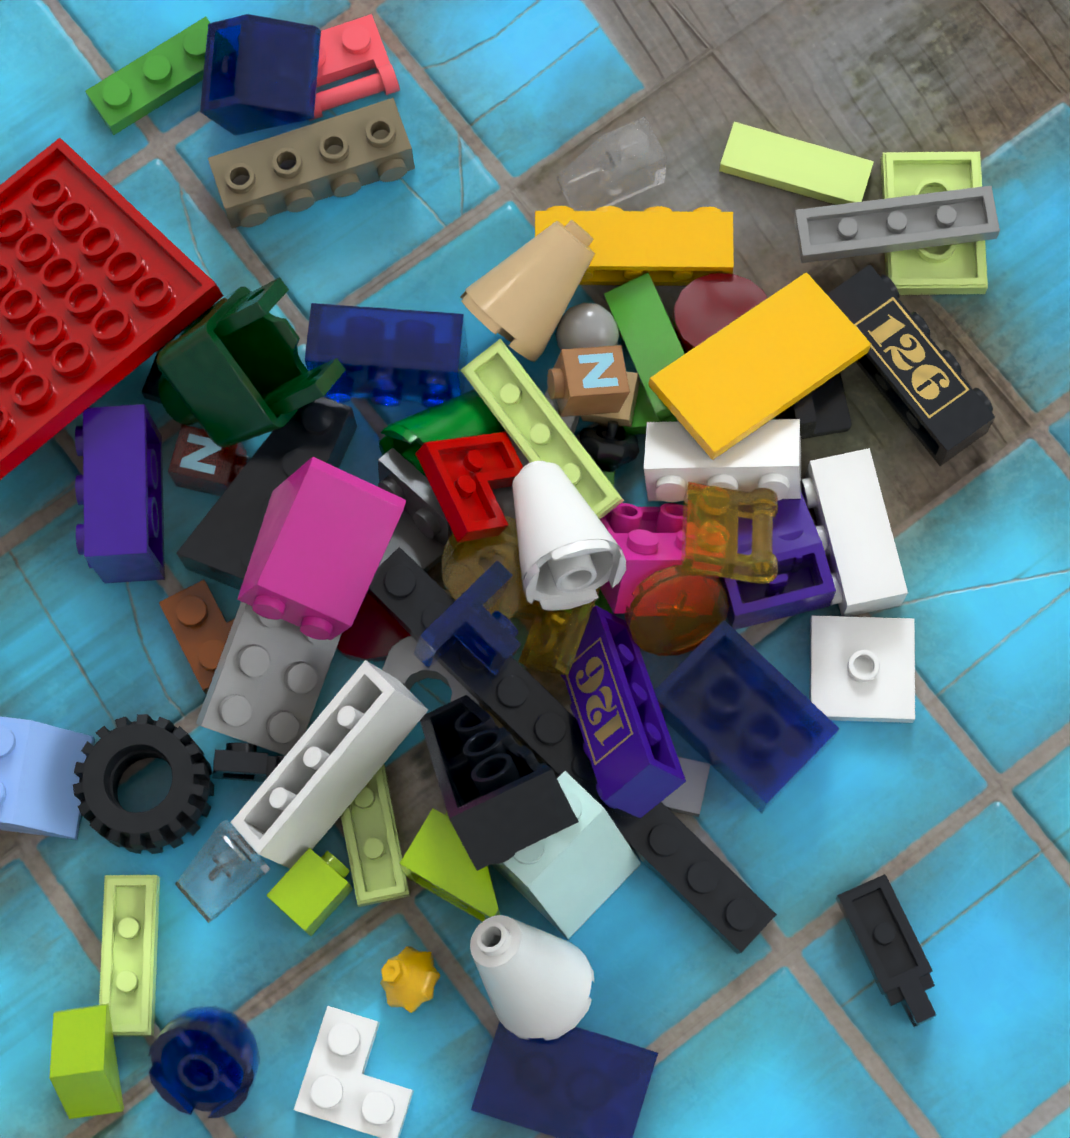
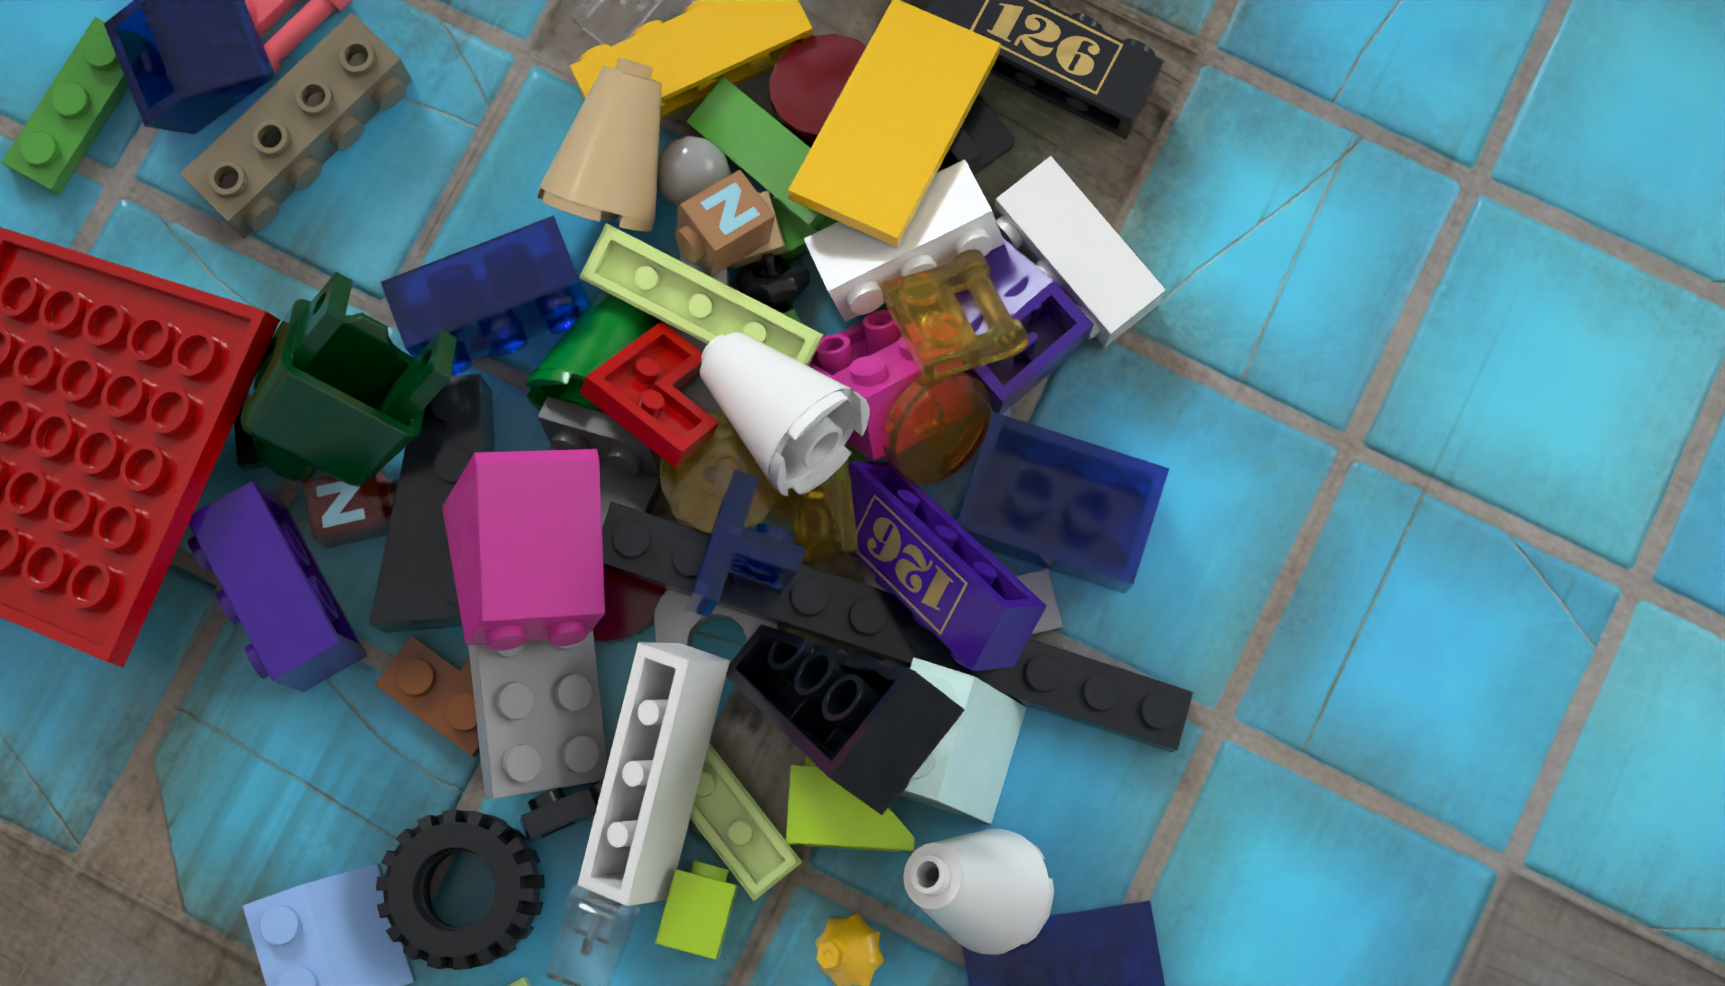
camera: 30 degrees left, 5 degrees up
(863, 668) = (1153, 390): white plate -> none
(889, 947) = (1324, 667): black hinge -> none

